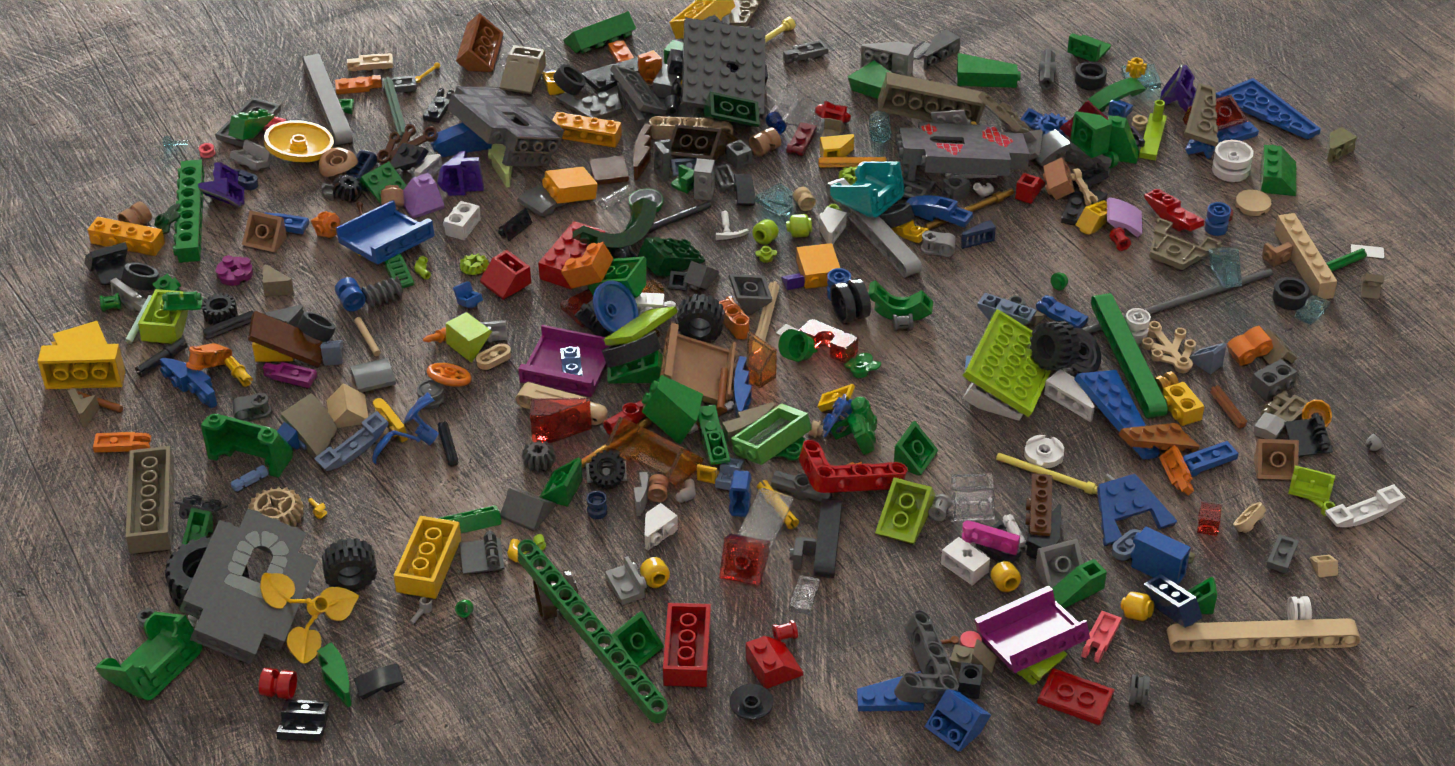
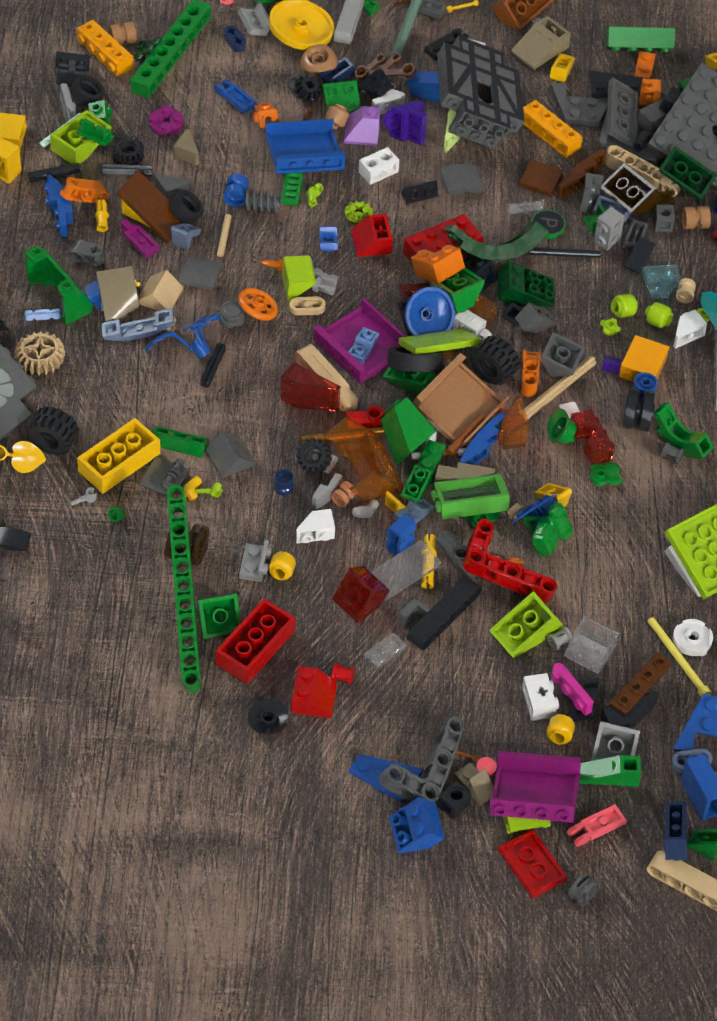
camera: 30 degrees right, 10 degrees up
(110, 302) = (45, 103): green bush -> none
(225, 186) = (210, 40): dark purple piece -> none
(264, 231) = (212, 98): medium nougat slope -> none
(319, 510) = (73, 371): yellow hand -> none
(394, 422) = (183, 318): yellow hinge -> none
(538, 456) = (272, 414): dark grey gear -> none
(564, 483) = (273, 450): green slope -> none
(569, 79) = (565, 75): black tyre -> none
(570, 184) = (491, 176): light orange brick -> none
(726, 232) = (593, 290): white piece -> none
(914, 449) = (580, 575): green slope -> none
(1012, 527) = (605, 693): white axle -> none
(1137, 606) = (649, 818): yellow head -> none

